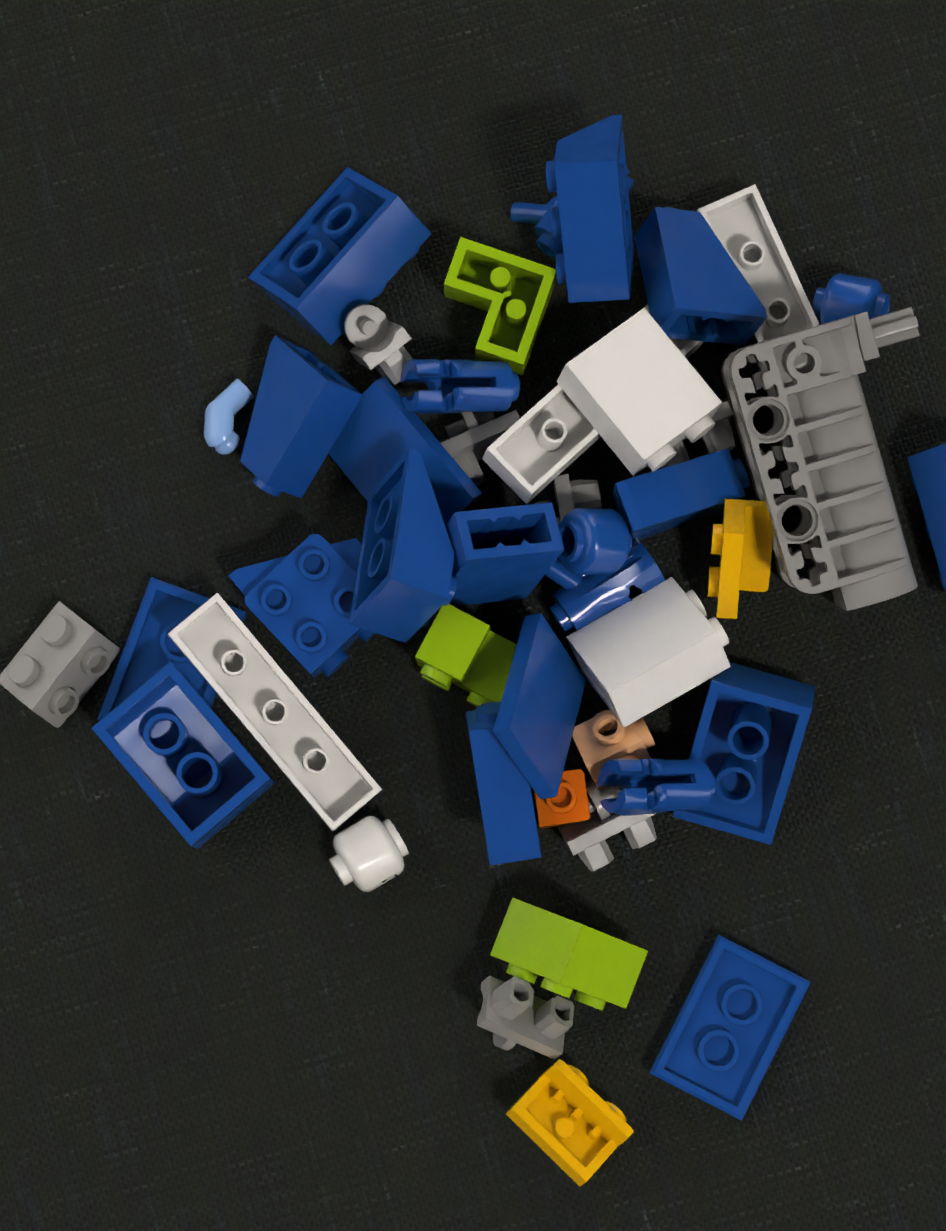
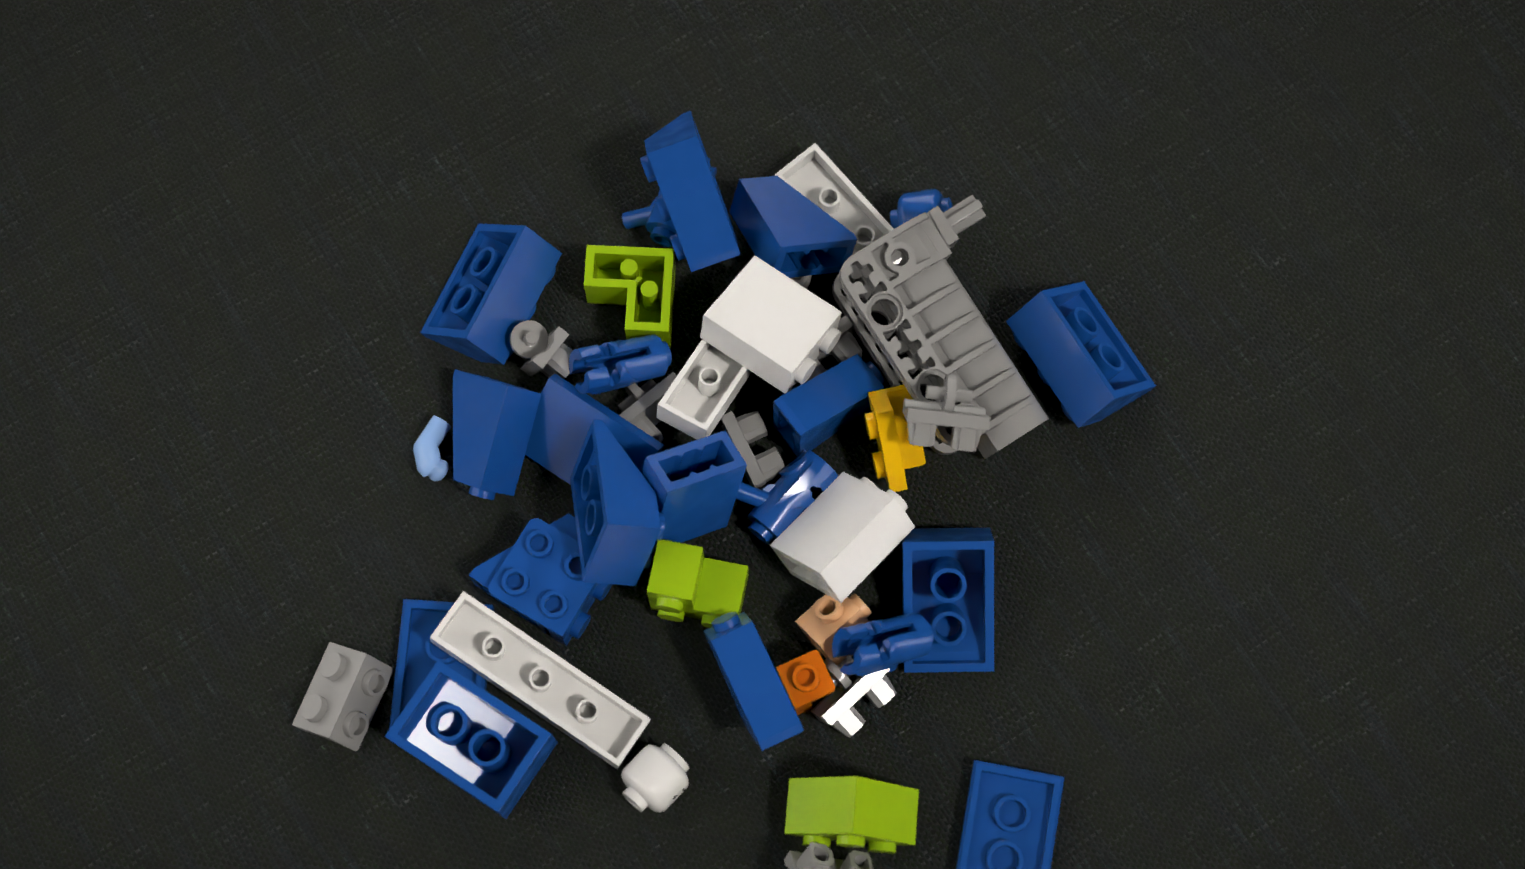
camera: 20 degrees left, 10 degrees down
(539, 706) = (765, 605): blue tile -> none
(594, 541) = (771, 456): blue head -> none
(801, 553) = (965, 420): none -> light grey hips

